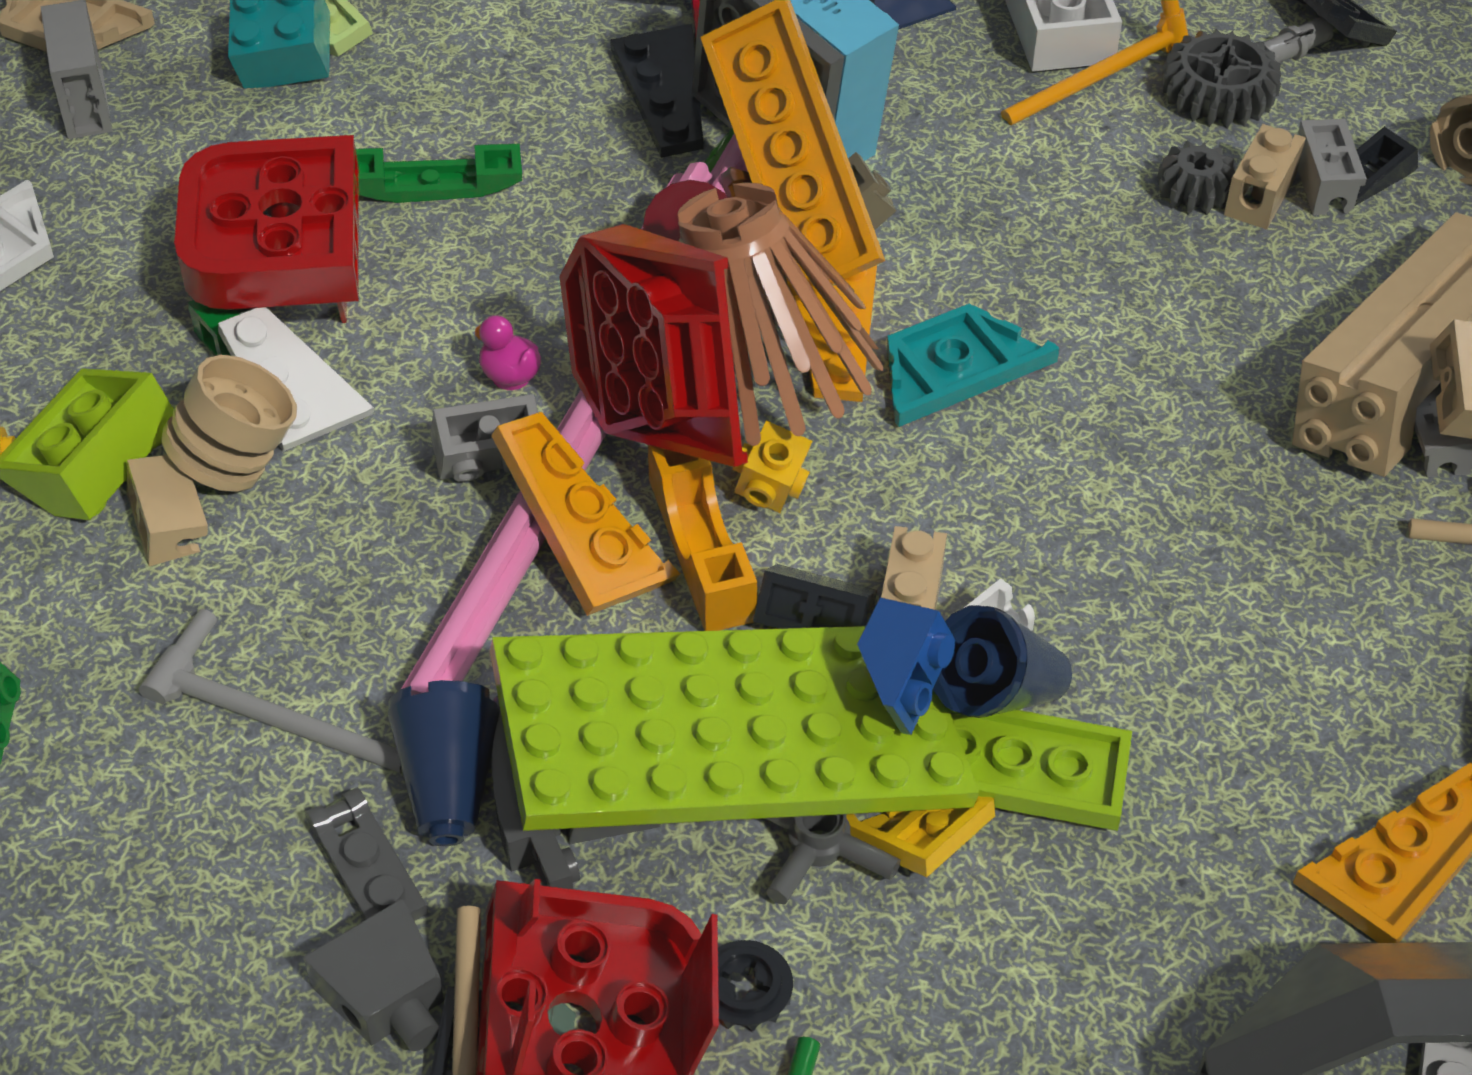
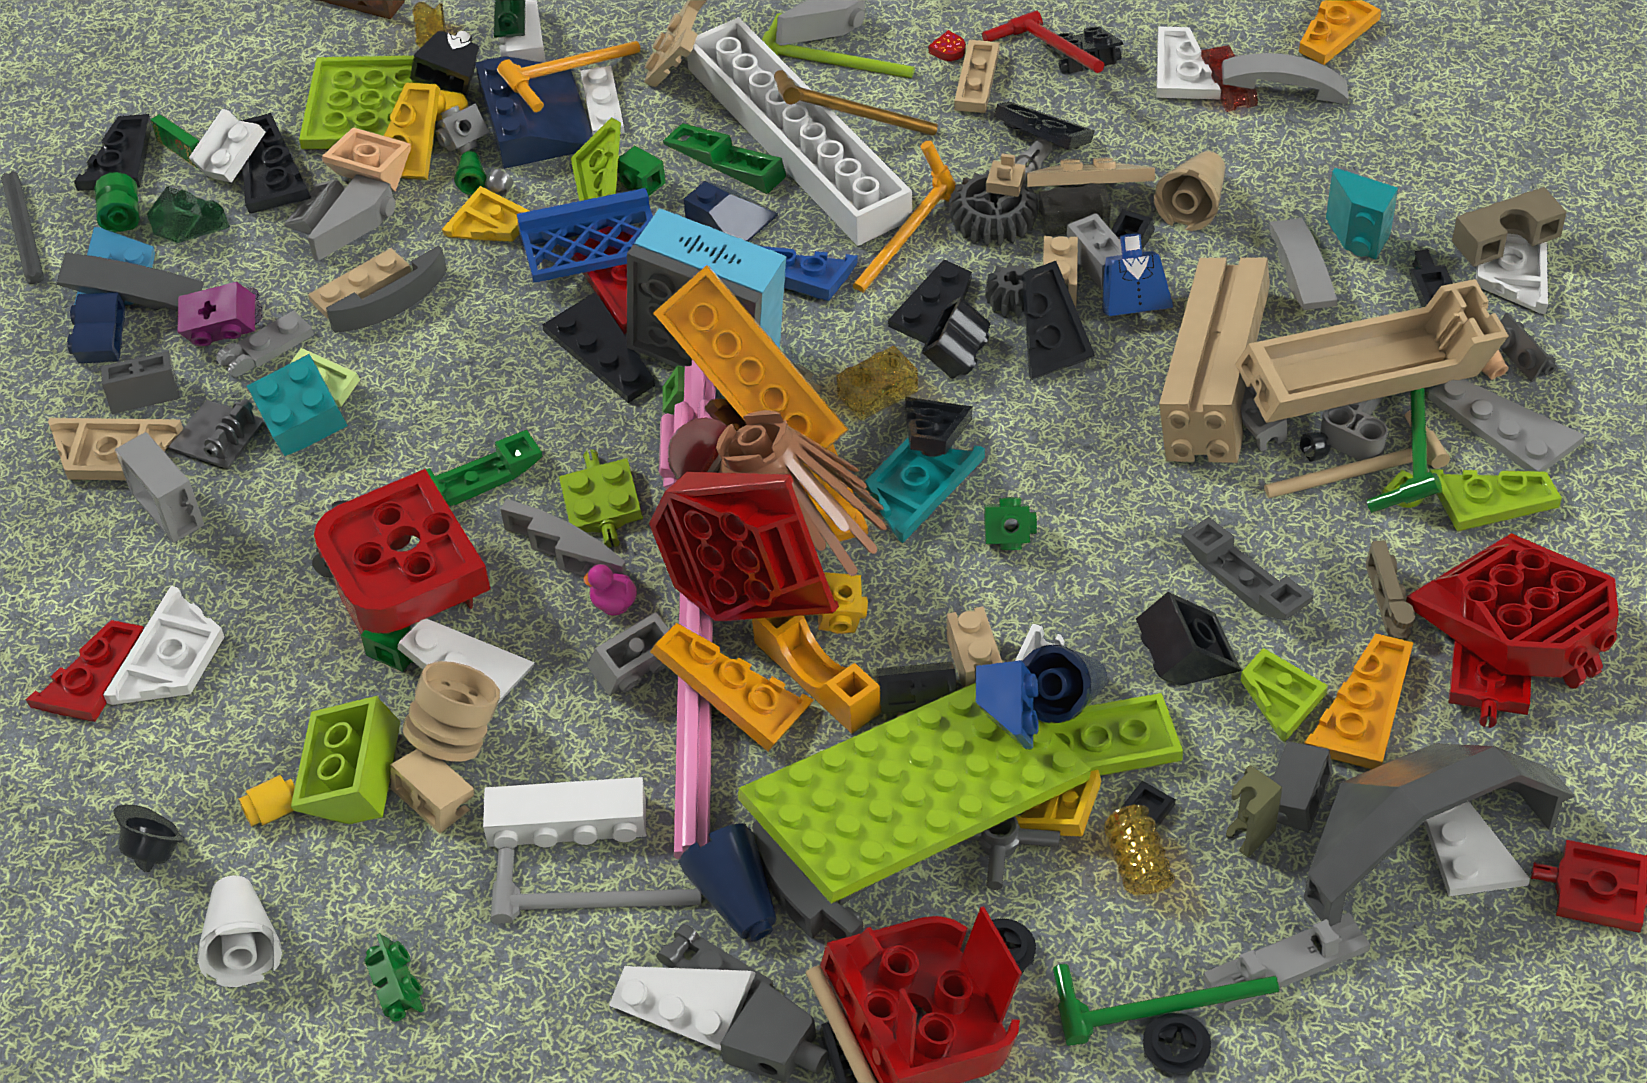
camera: 20 degrees left, 0 degrees up
(184, 39) = (218, 432): none -> flat silver hinge
(299, 595) = (565, 812): none -> white brick
(300, 883) = (684, 1000): none -> white wing
(484, 277) = (548, 534): none -> light grey slope
(548, 242) = (601, 497): none -> lime plate
(953, 84) = (817, 273): none -> blue wing
(967, 228) = (877, 382): none -> clear yellow brick
(991, 926) = (1138, 851): none -> clear yellow piece
(1009, 299) = (934, 424): none -> black wing
(1022, 444) = (996, 516): none -> green brick
(1041, 873) = (1156, 800): none -> black tile
(1088, 167) = (922, 308): none -> black wing
(1092, 209) = (957, 338): none -> black brick
(1181, 936) = (1257, 808): none -> olive hinge
(1201, 677) = (1185, 641): none -> black slope
(1223, 228) = (1052, 323): none -> black wing
(1250, 42) = (1005, 176): none -> tan tile
(1262, 926) = (1304, 777): none -> dark grey hinge
(1301, 792) = (1282, 691): none -> lime wing
(1310, 98) = (1066, 205): none -> clear smoke brick
(1321, 620) = (1250, 582): none -> dark grey slope
(1344, 67) = (1101, 171): none -> tan wing
(1356, 211) = (1134, 280): none -> blue torso

